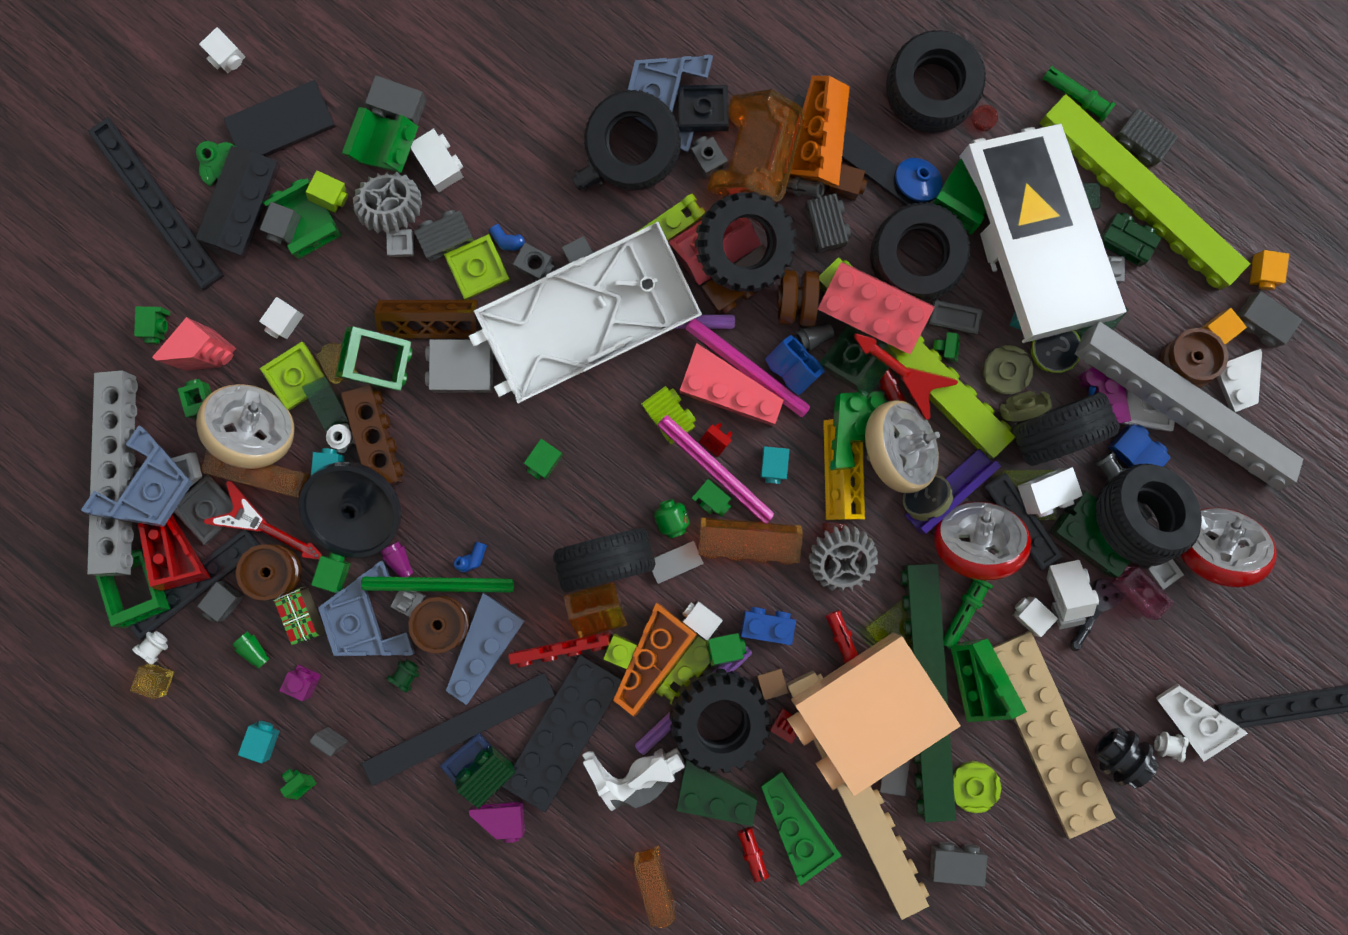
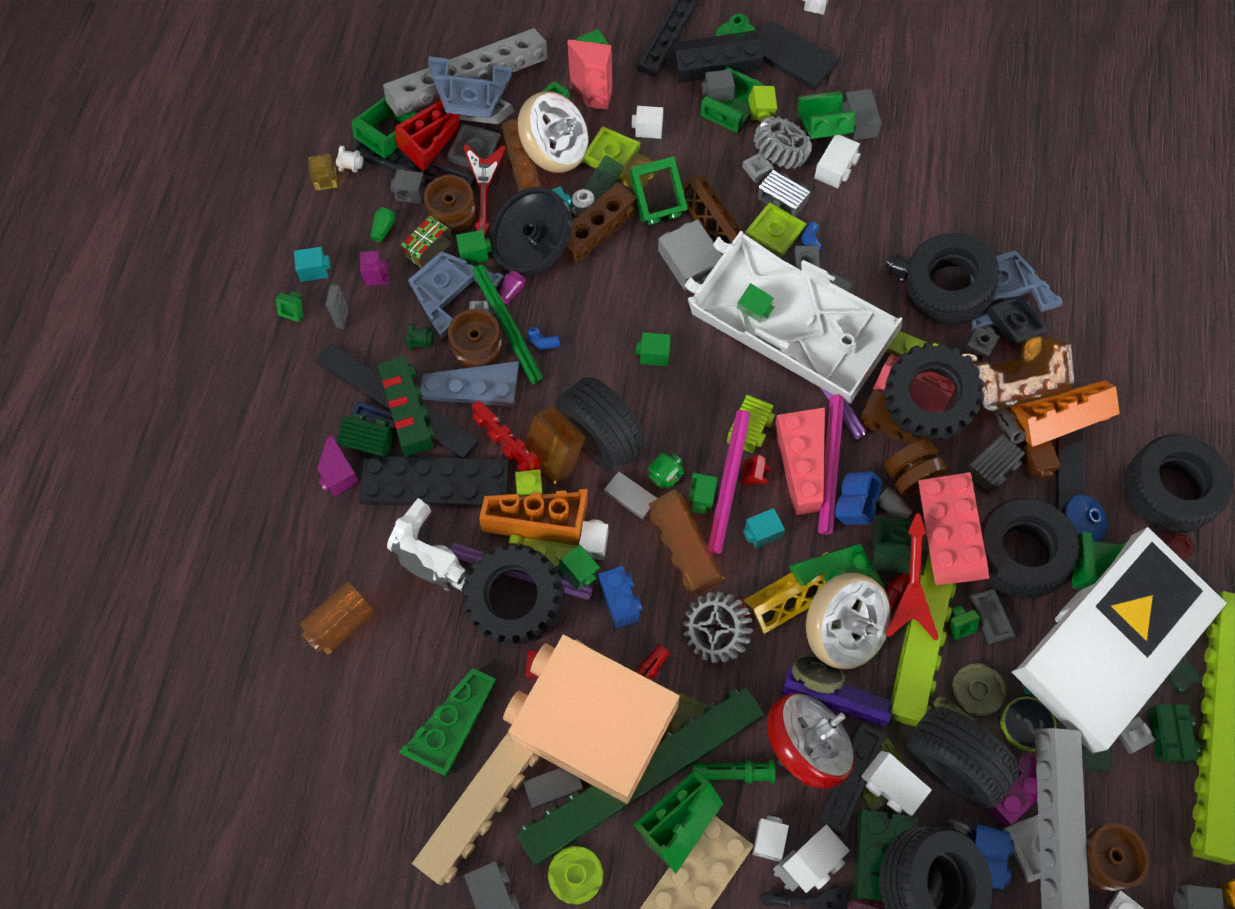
camera: 65 degrees right, 20 degrees down
(475, 725) = (405, 406): none -> dark green brick
(556, 340) = (756, 303): none -> green brick
(714, 796) = (443, 629): dark green wedge -> none
(753, 854) = (407, 696): red pin -> none
(772, 684) = (571, 628): medium nougat tile -> none
(1225, 325) = (1163, 876): light orange brick -> none

